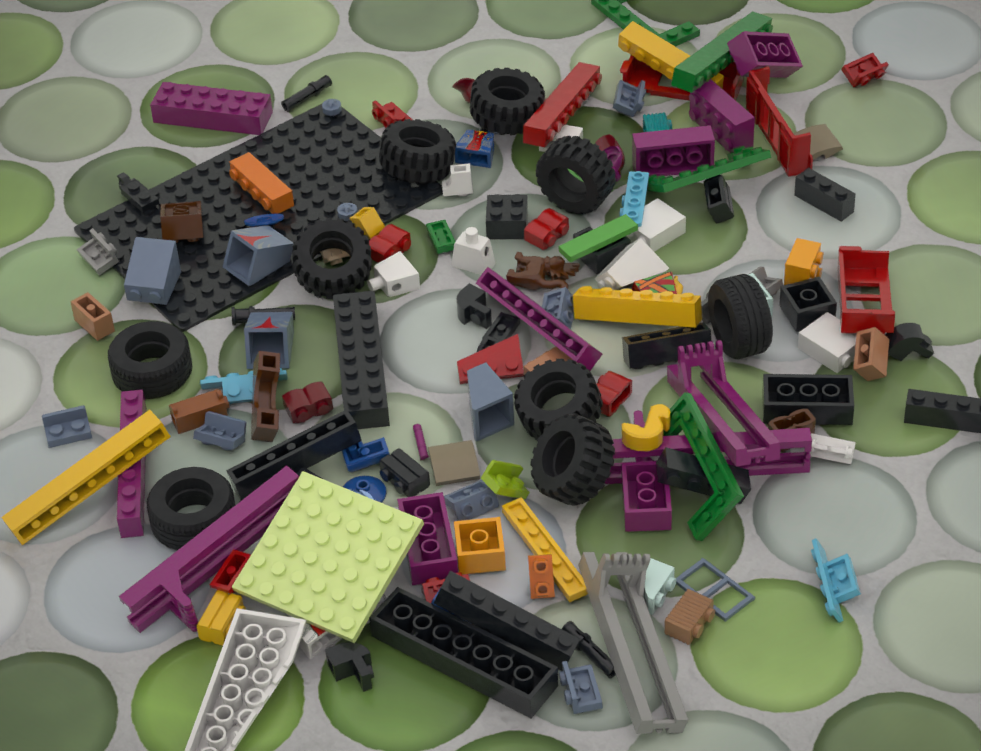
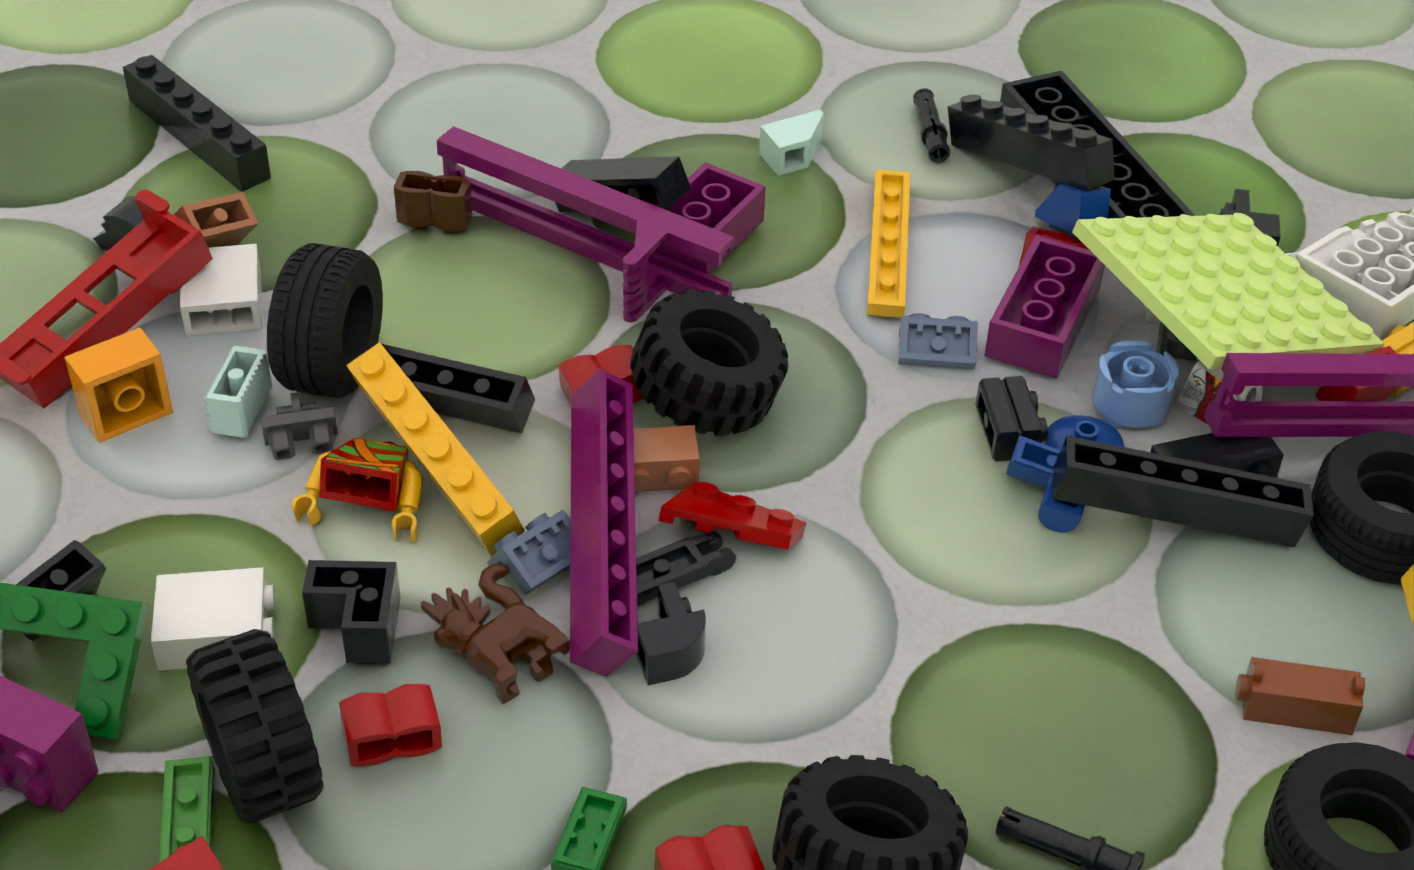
camera: 150 degrees left, 0 degrees up
(221, 431) = (1279, 629): sand blue bracket -> none
(235, 386) = (1187, 712): medium azure bracket -> none
(264, 413) = (1161, 640): reddish brown arch -> none
(271, 334) = (1089, 769): sand blue slope -> none
(307, 402) = (1091, 611): dark red brick -> none
(361, 359) = (945, 637): black brick -> none
(394, 276) = (750, 781): white torso -> none
(420, 441) = (943, 466): magenta wheel -> none
(454, 463) = (919, 405): dark tan slope -> none
(473, 252) = (568, 722): white torso -> none
(479, 545) = (978, 263): light orange brick -> none
(489, 402) = (811, 431): sand blue slope -> none
(504, 480) = (878, 318): lime bracket -> none
(506, 216) = (433, 790): black brick -> none
(541, 576) = (929, 195): orange hips -> none
(572, 459) = (779, 251): black tyre -> none
(581, 688) = (981, 83): sand blue bracket -> none
(598, 238) = (360, 581): bright green tile -> none
(614, 152) = (112, 798): hair -> none
(631, 264) = (372, 517): white slope -> none
(631, 576) = (856, 102): light grey piece -> none
(634, 200) = (165, 677): medium azure bracket -> none
(651, 435) = (649, 204): yellow animal -> none
(689, 616) = (785, 96): medium nougat brick -> none
(714, 375) = (457, 270): magenta piece -> none
(725, 579) = (744, 122): sand blue window -> none
(727, 493) = (624, 127): green plate -> none
(771, 284) = (186, 417): light grey bracket -> none
(806, 302) = (190, 338): black brick -> none
(825, 396) = (359, 215): black brick -> none
(832, 448) = (402, 159): white hinge -> none
(837, 579) = (579, 55): medium azure bracket -> none

